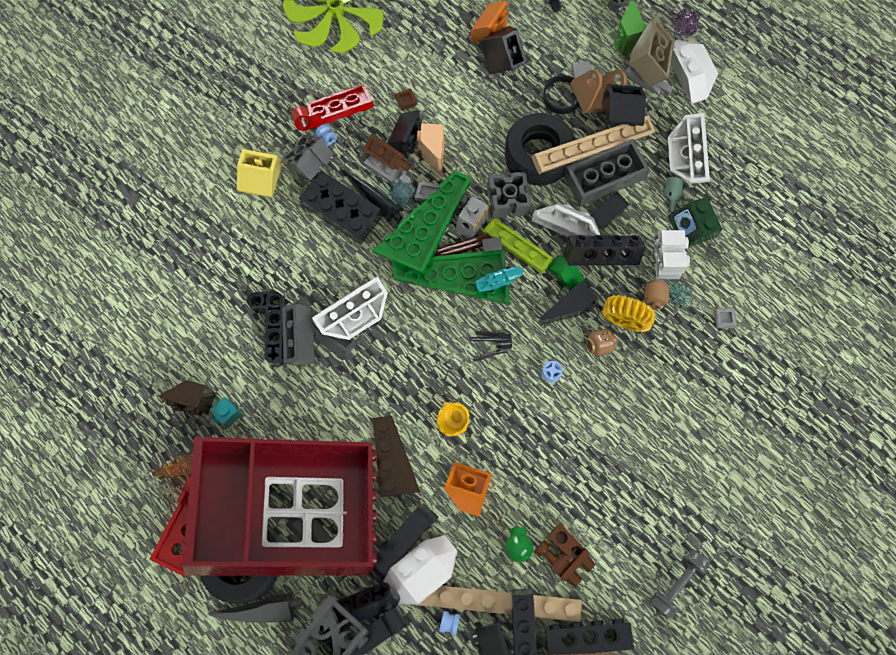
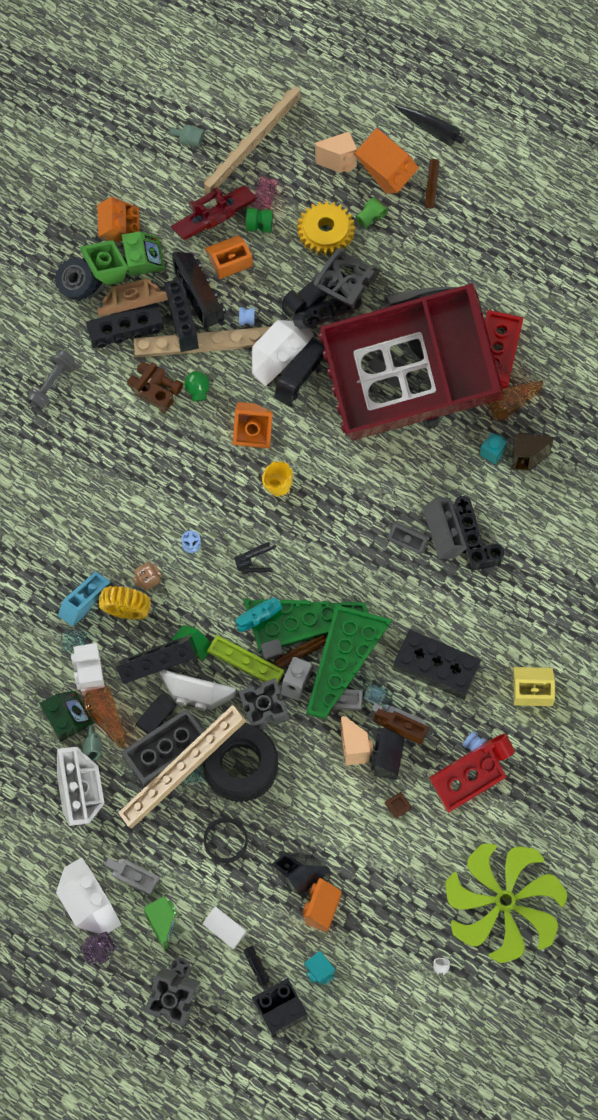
camera: 165 degrees right, 5 degrees down
(307, 157) = (485, 705): dark grey brick -> none
(354, 311) = (399, 560): white wedge -> none
(388, 208) = (405, 687): black piece -> none
(392, 461) = (327, 438): dark brown wing -> none
(571, 305) = (180, 608): black slope -> none
(574, 28) = (224, 927): none -> white slope
(581, 68) = (208, 874): light grey tile -> none
(591, 90) = (179, 845): medium nougat hose -> none
(624, 105) = (156, 818): black slope -> none
(653, 53) = (131, 885): dark tan slope -> none
(656, 294) = (98, 632): medium nougat head -> none
(658, 214) = (104, 713): none -> clear orange slope
(666, 333) = (81, 600): none -> medium azure slope
(725, 318) = (26, 625): light grey tile -> none

